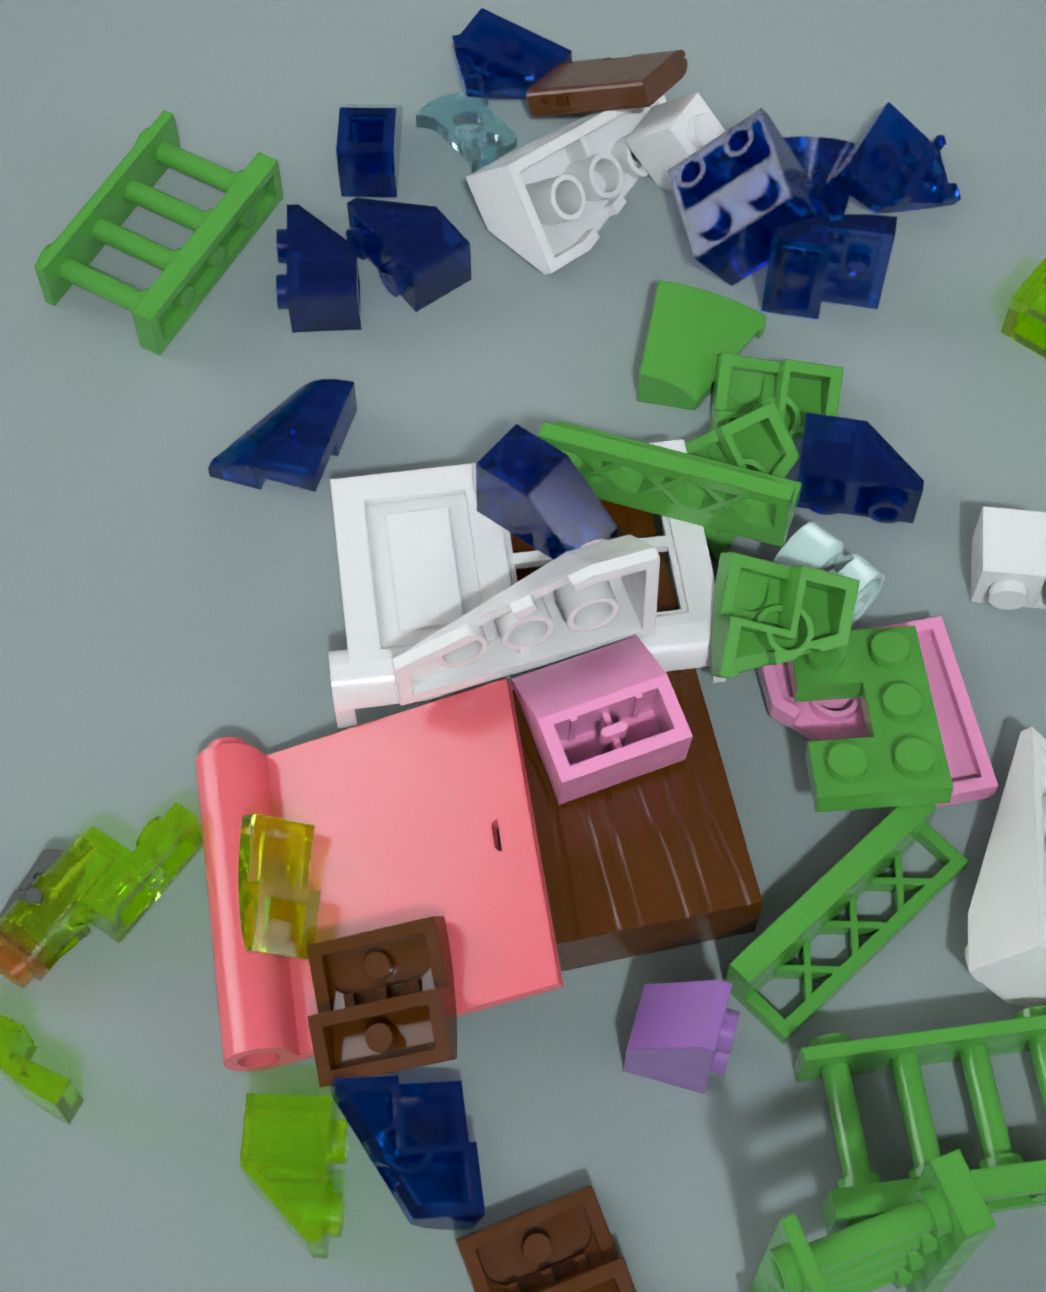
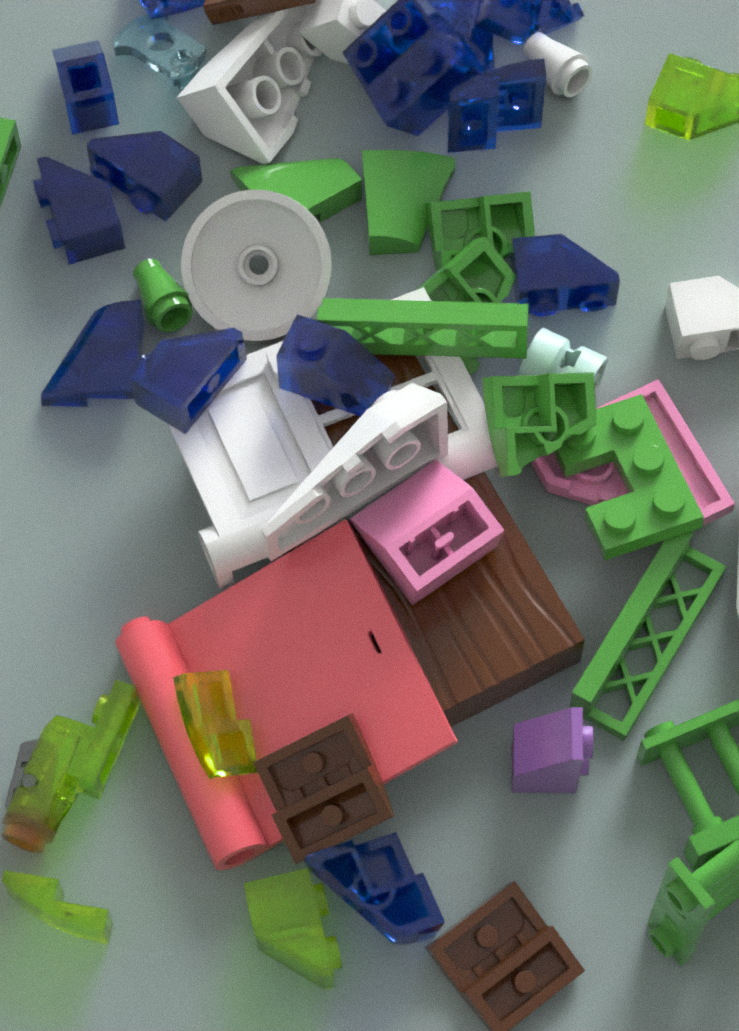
camera: 15 degrees left, 5 degrees up
(371, 467) = (186, 375): none -> clear blue slope
(382, 391) = (162, 297): none -> bright green cone
(471, 343) = (220, 254): none -> white dish
(577, 310) = (318, 185): none -> bright green slope
(919, 246) = (565, 68): none -> white cone

